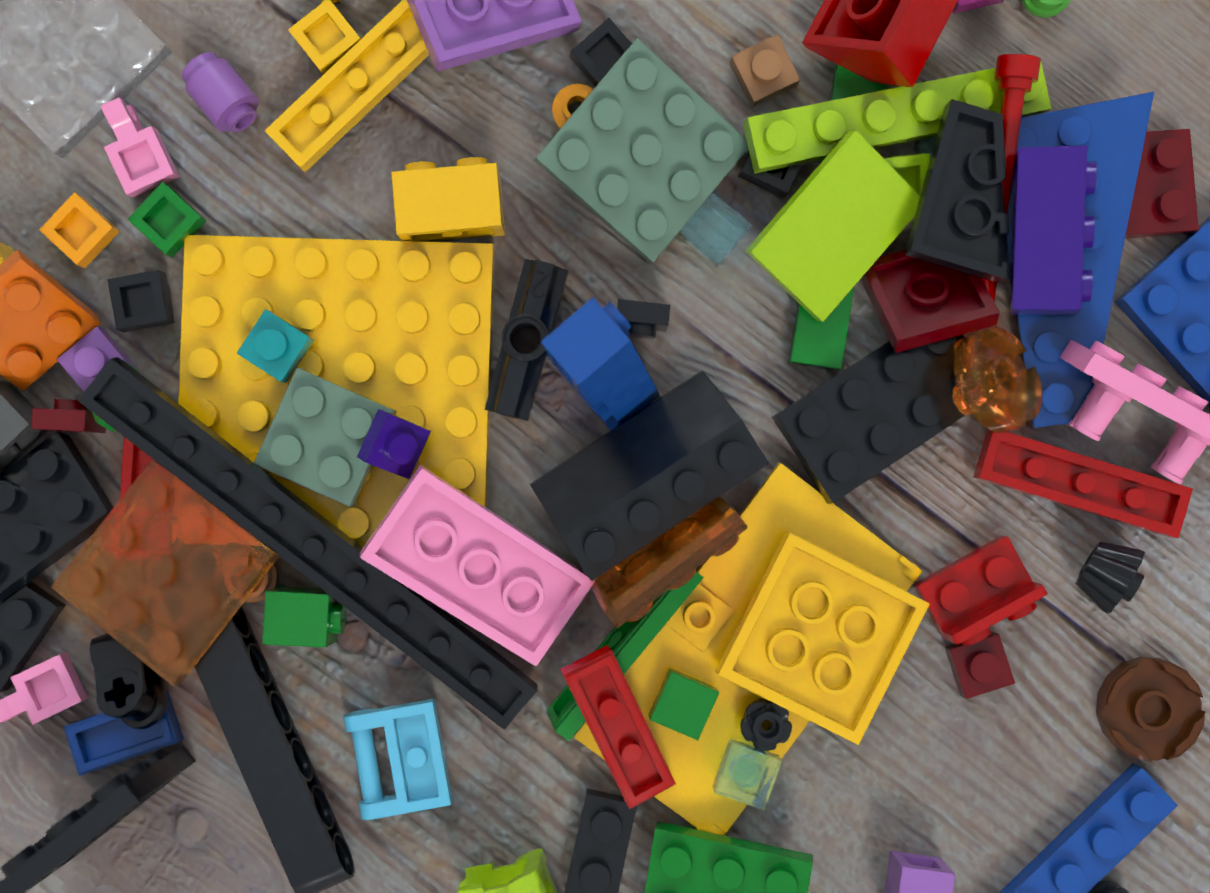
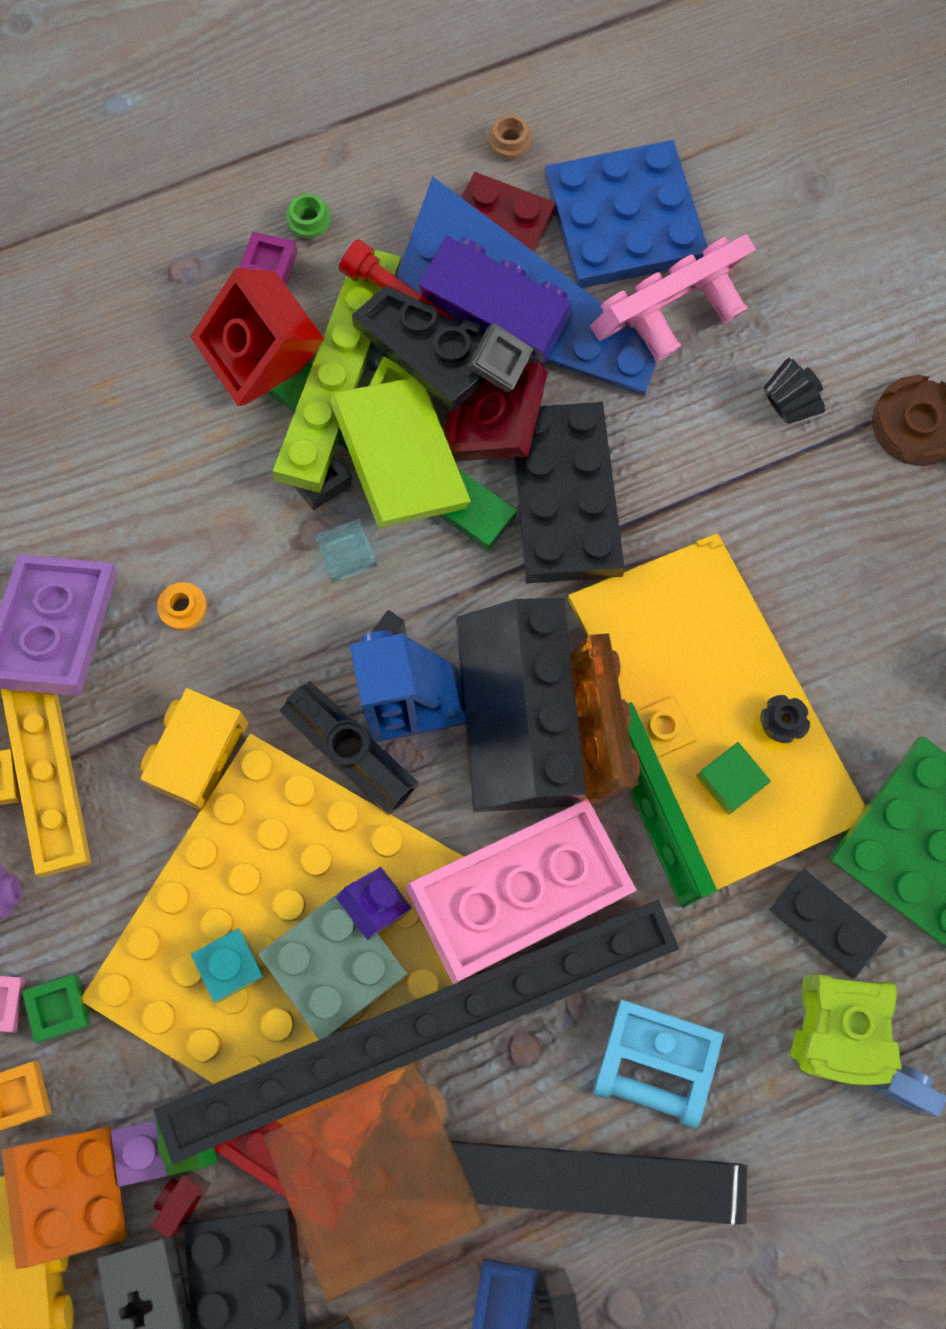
camera: 55 degrees left, 15 degrees down
(126, 684) = (446, 1277): black piece -> none
(140, 301) = (113, 1074): black plate -> none
(302, 617) = (483, 1077): green brick -> none
(600, 51) = (153, 560): black plate -> none
(618, 726) = (725, 840): red tile -> none
(643, 151) = (248, 571): sand green plate -> none
(746, 774) = (821, 756): clear light blue plate -> none
(764, 71) = (241, 447): medium nougat plate -> none
(822, 638) = (732, 635): yellow plate -> none
(979, 592) = (758, 499): red bracket -> none
(980, 666) = (819, 529): dark red plate -> none
(982, 272) = (500, 357): none -> dark grey tile
(995, 380) = (591, 398): clear orange plate -> none
(1083, 483) = (708, 379): red plate -> none

